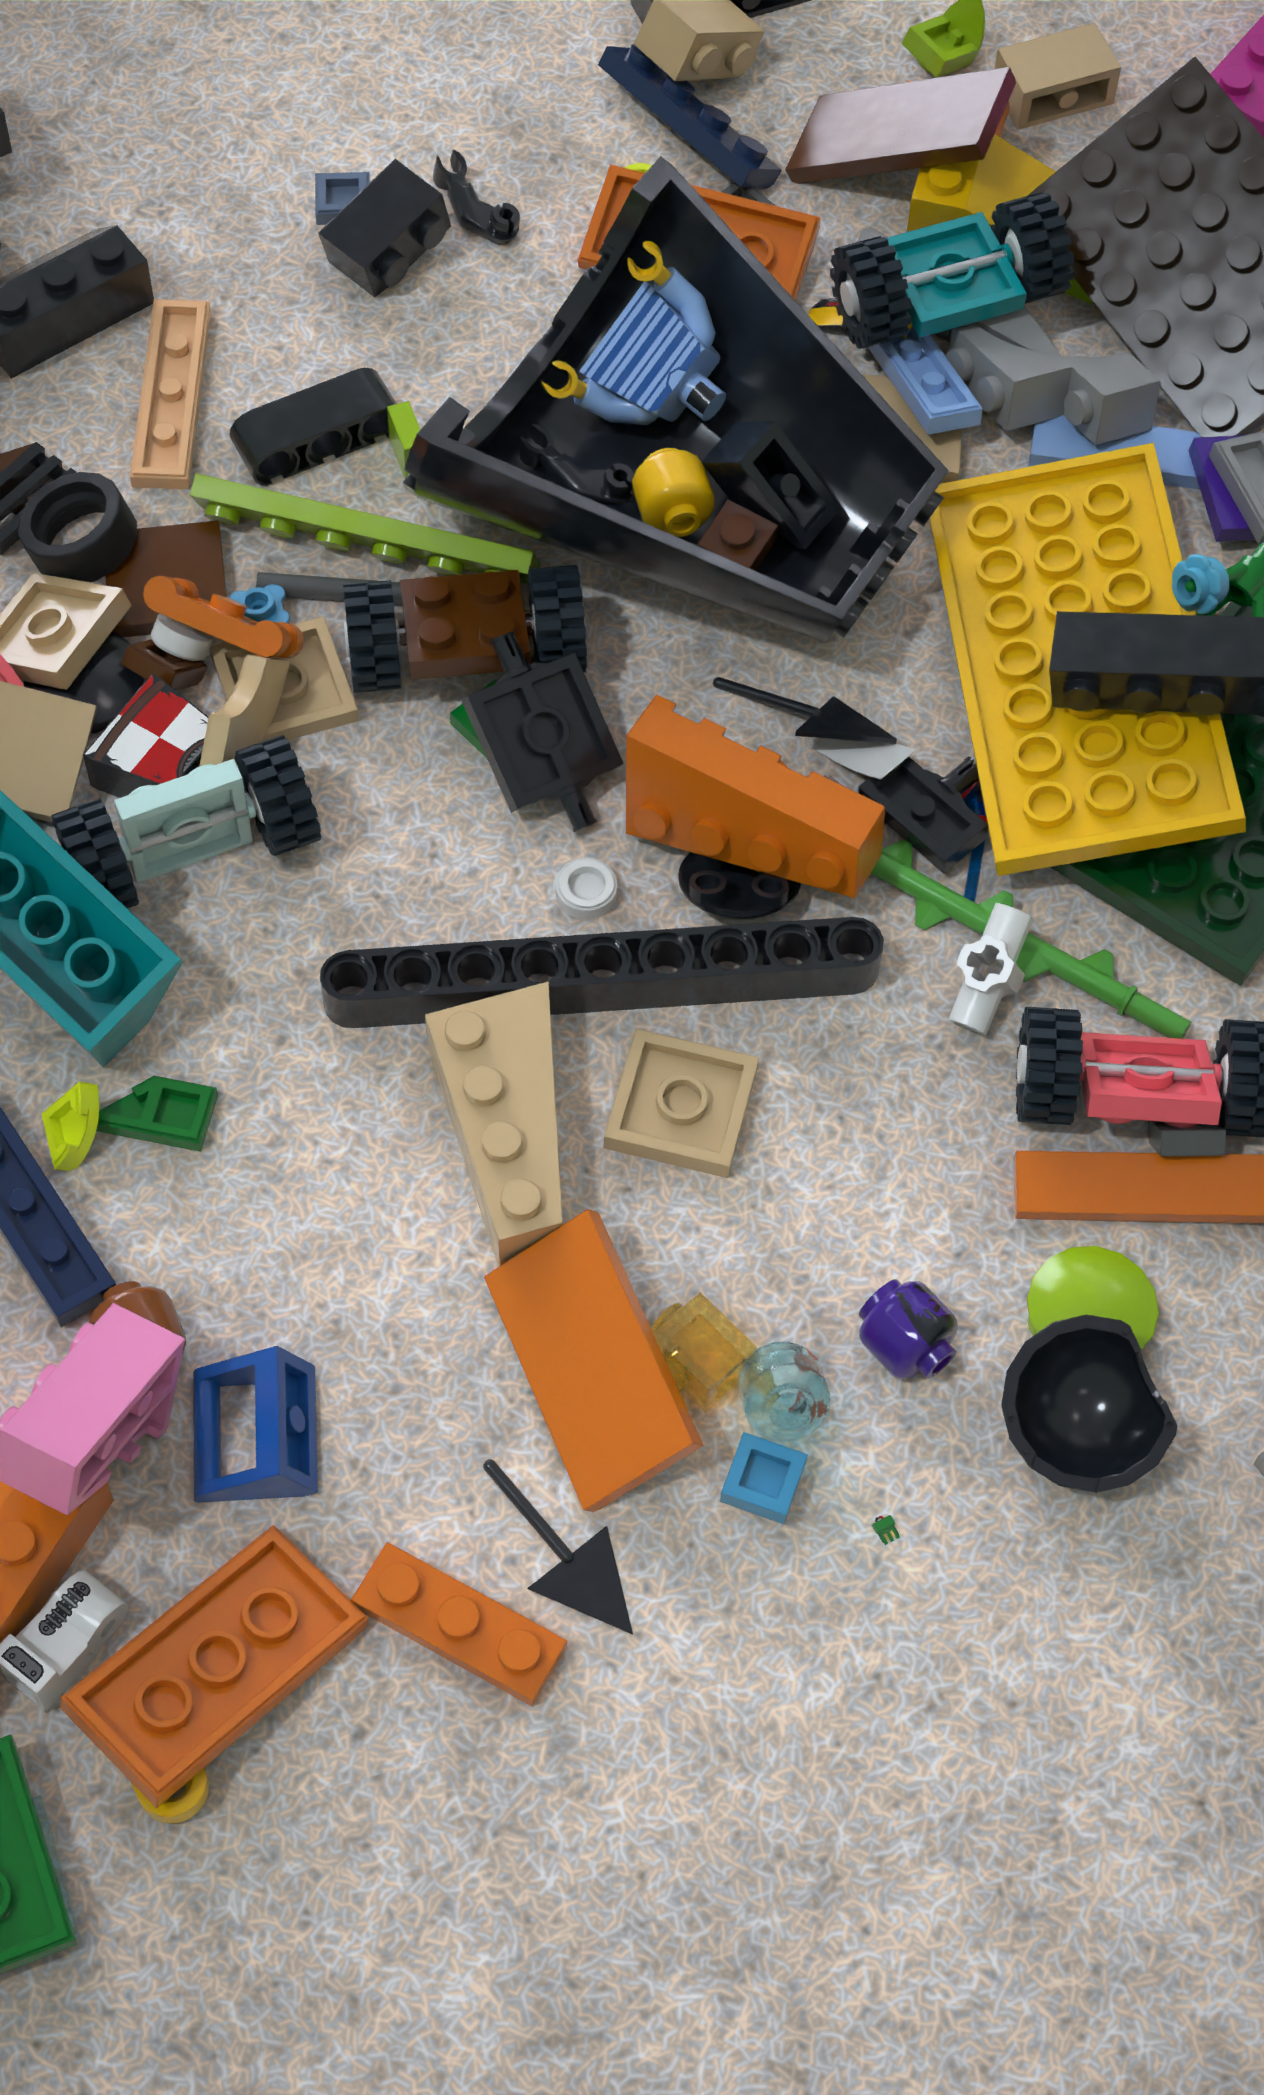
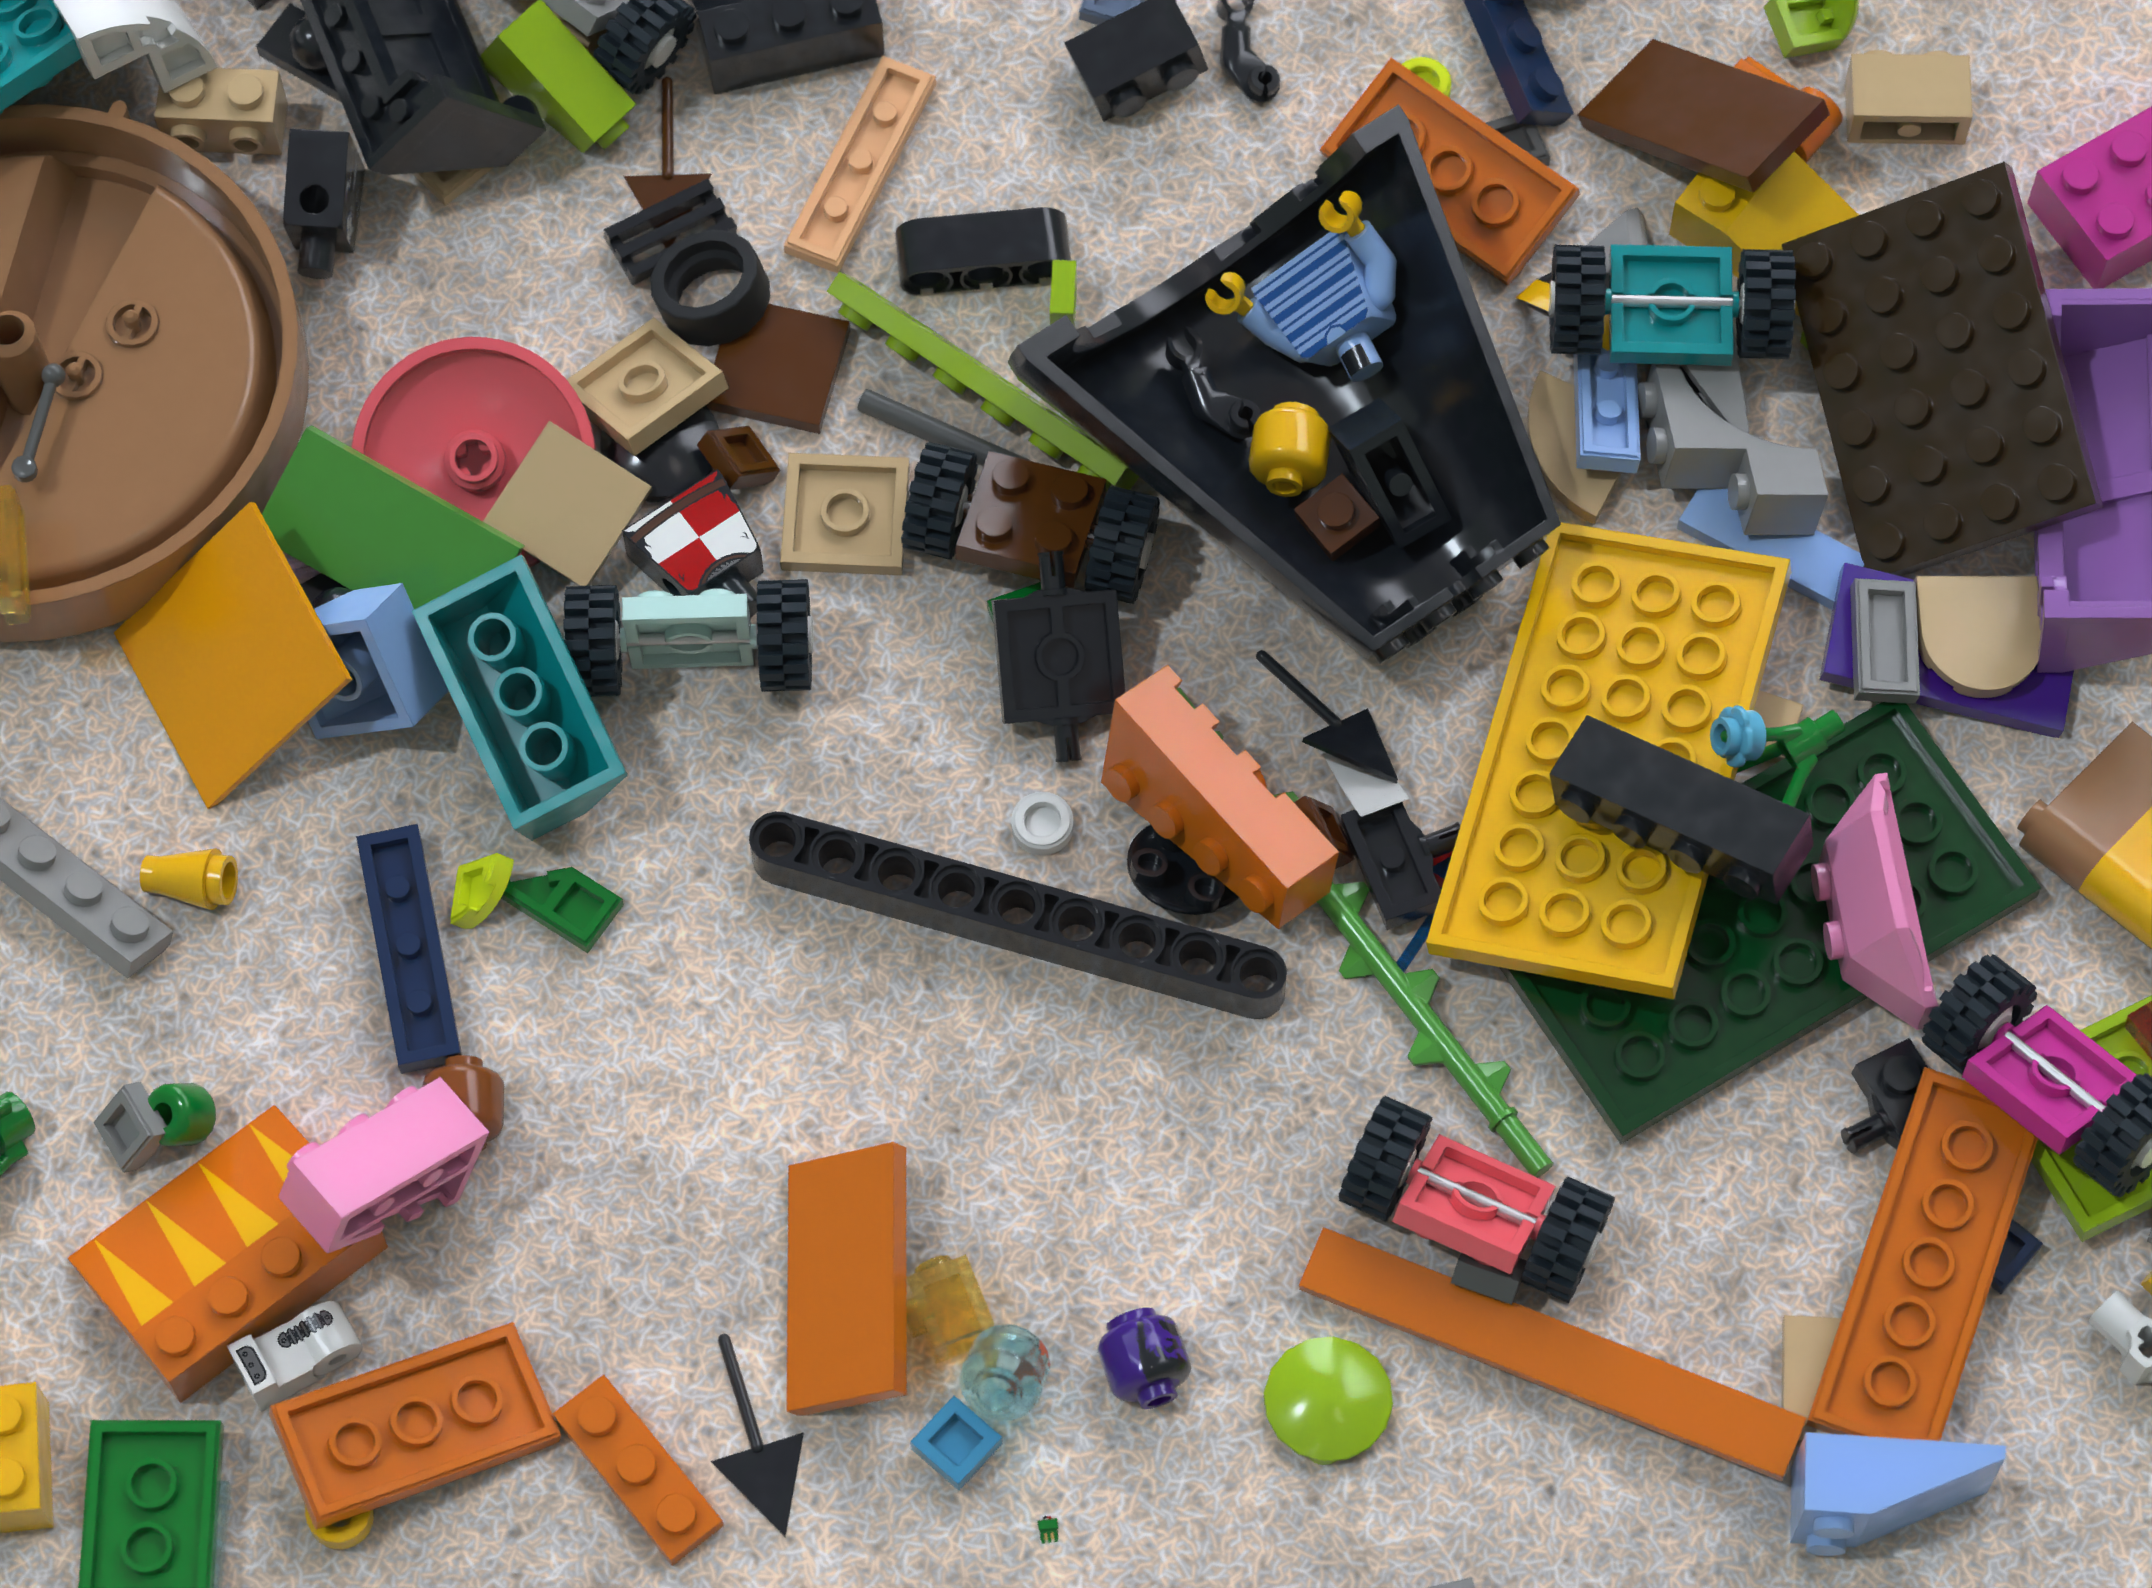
camera: 25 degrees right, 5 degrees up
(180, 639) = (764, 435): white tile -> none
(221, 618) = (804, 434): orange plate -> none
(247, 712) = (788, 542): tan tile -> none
(263, 603) = (857, 443): dark azure plate -> none
(282, 1421) = (553, 1239): blue tile -> none
(501, 1100) = (870, 1009): tan wedge -> none
(681, 1103) = (1038, 1066): tan tile -> none
(1000, 942) = (1359, 1062): white axle -> none
(1086, 1405) = (1264, 1487): black cylinder -> none

